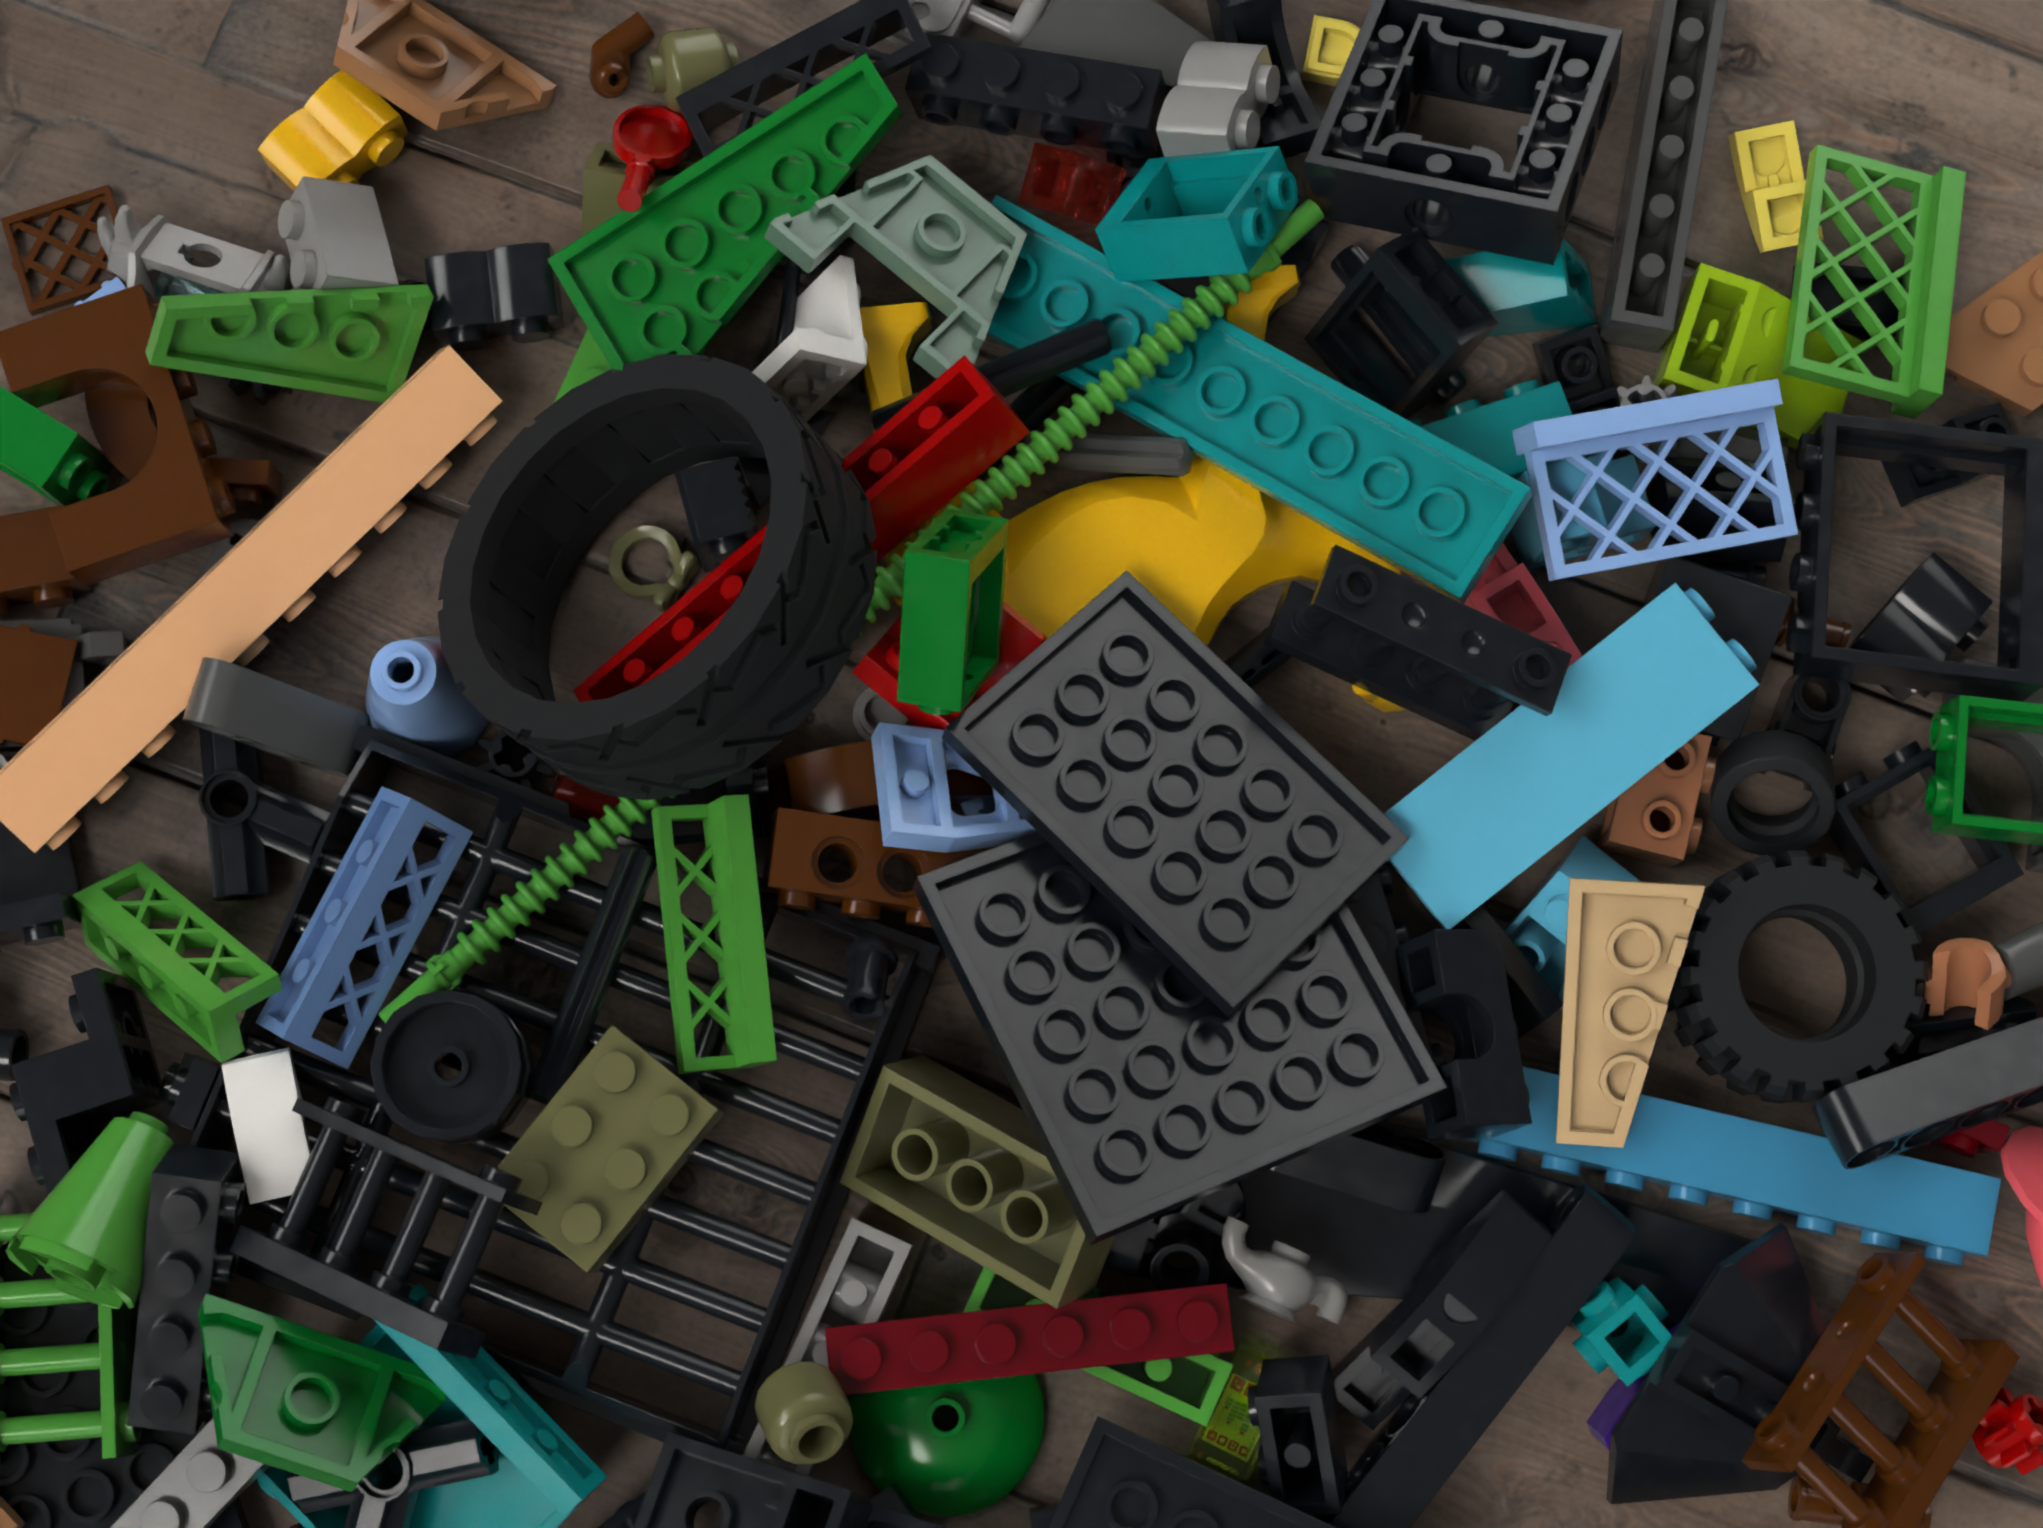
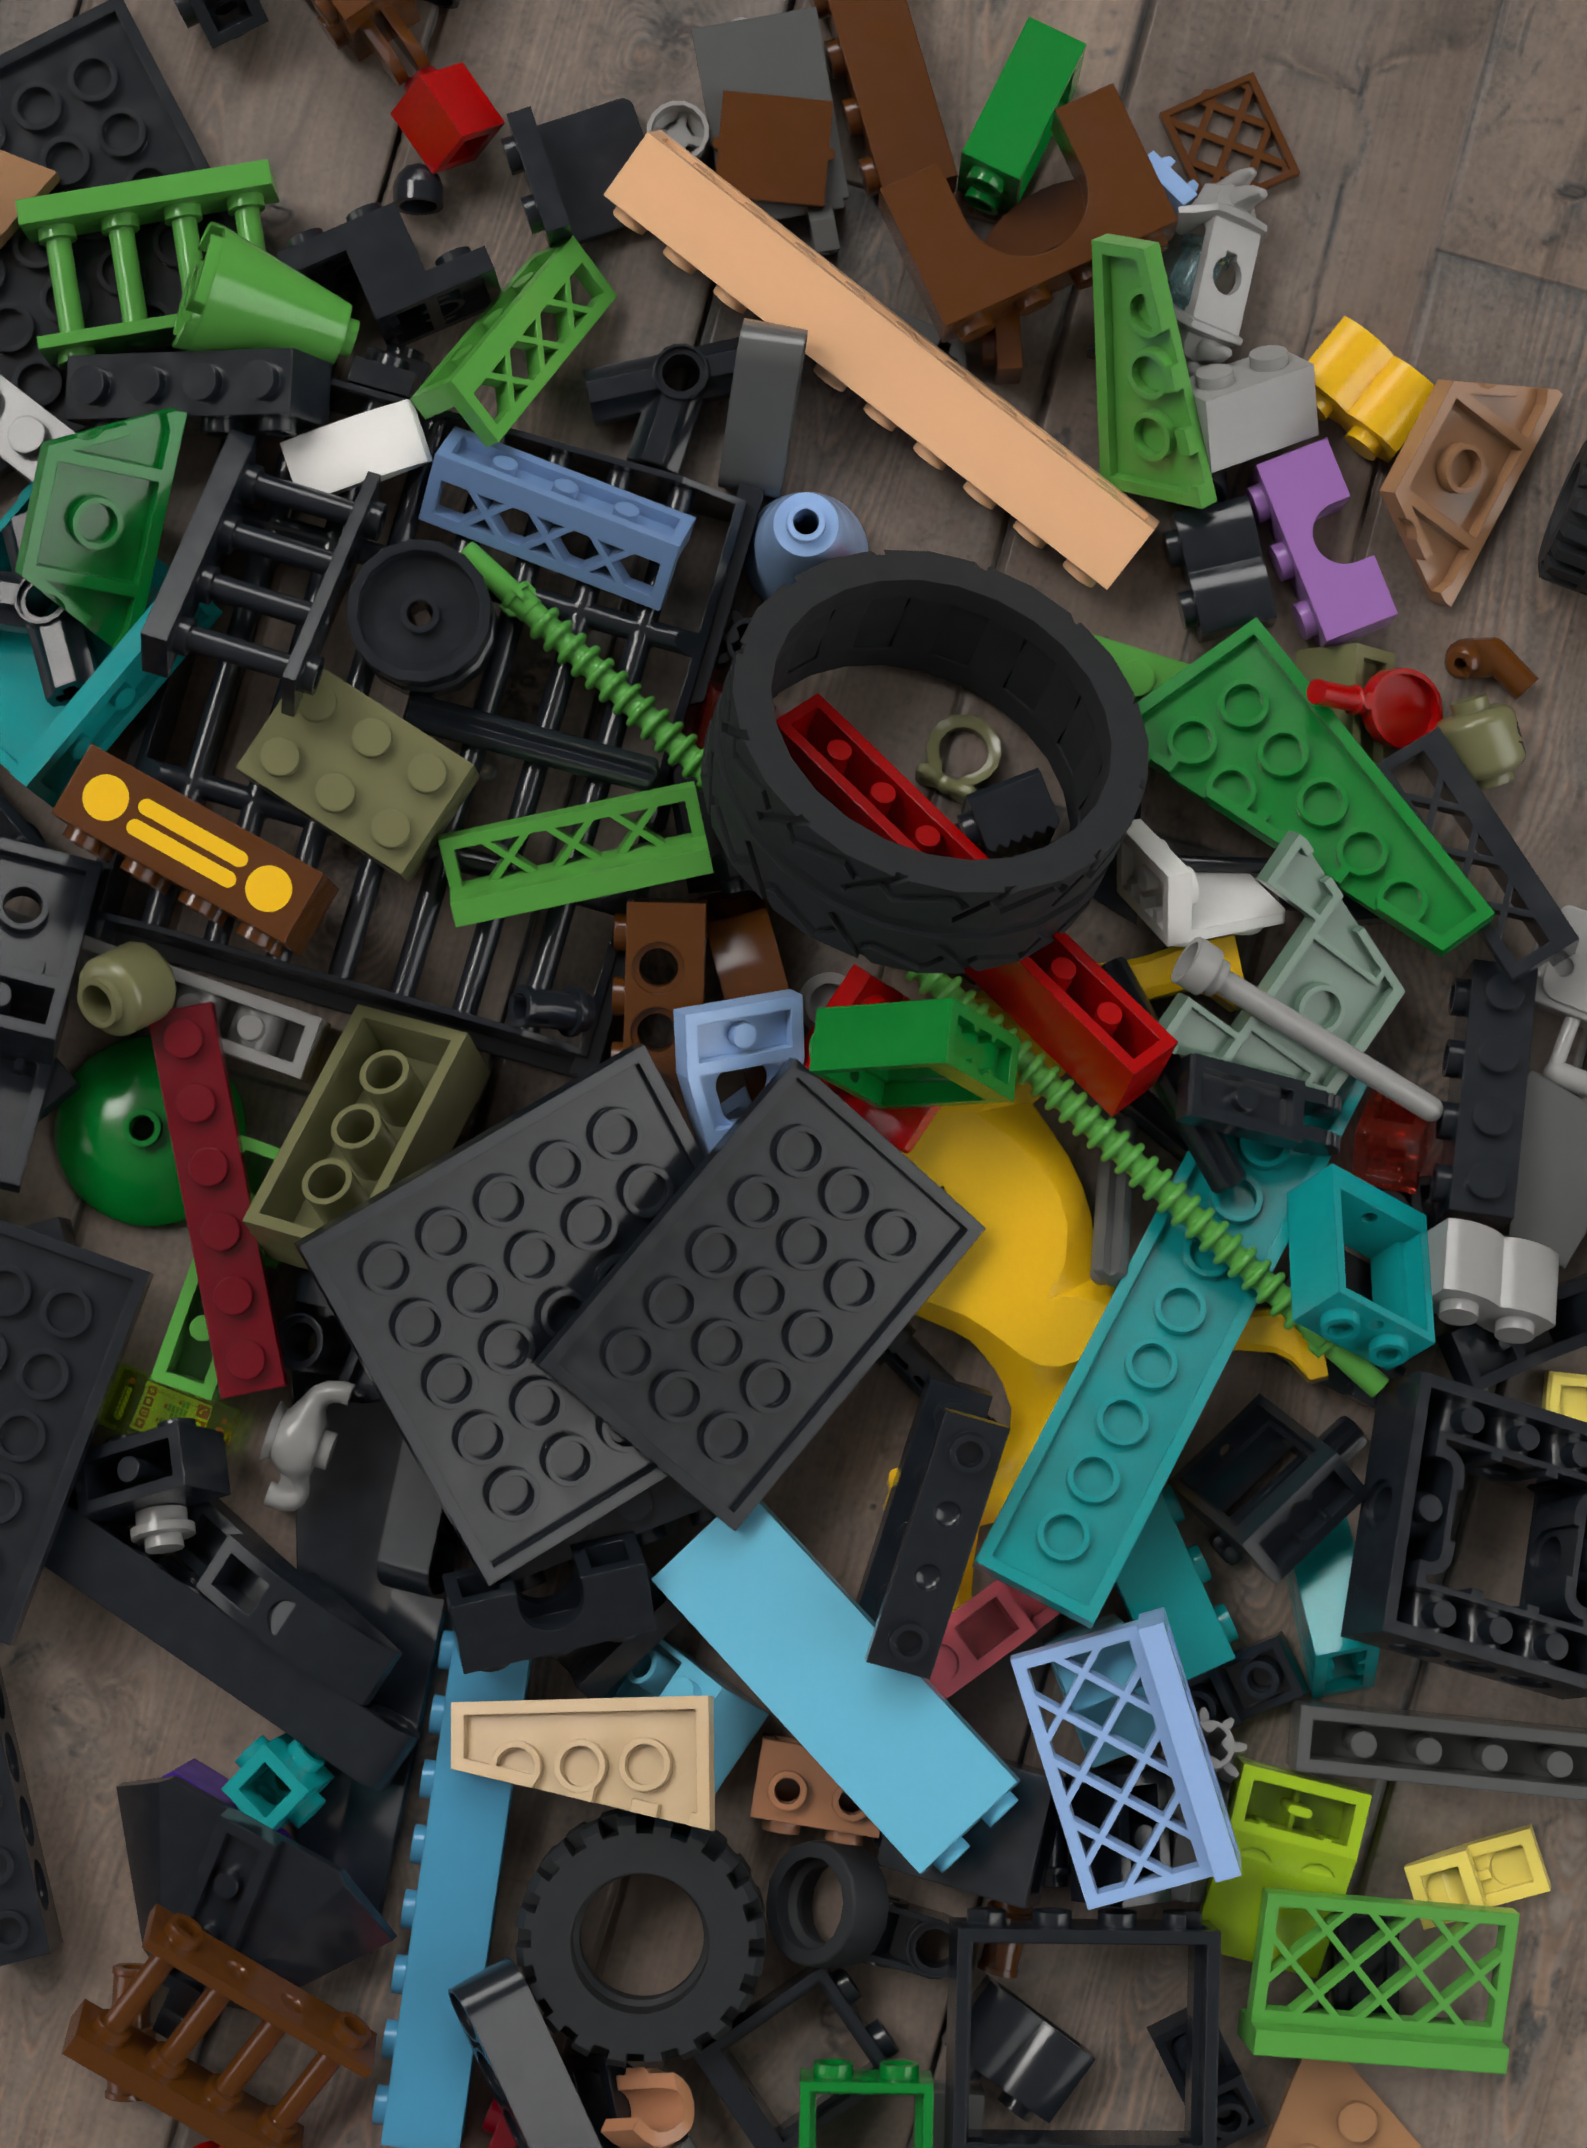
camera: 90 degrees right, 5 degrees up
(533, 196) = (1333, 598): none -> medium lavender arch
(667, 1326) = (187, 845): none -> reddish brown brick
(895, 327) = (1204, 970): none -> light grey piece
(1029, 301) = (1255, 1105): none -> black hinge
(1357, 1430) = (162, 1528): none -> light grey plate

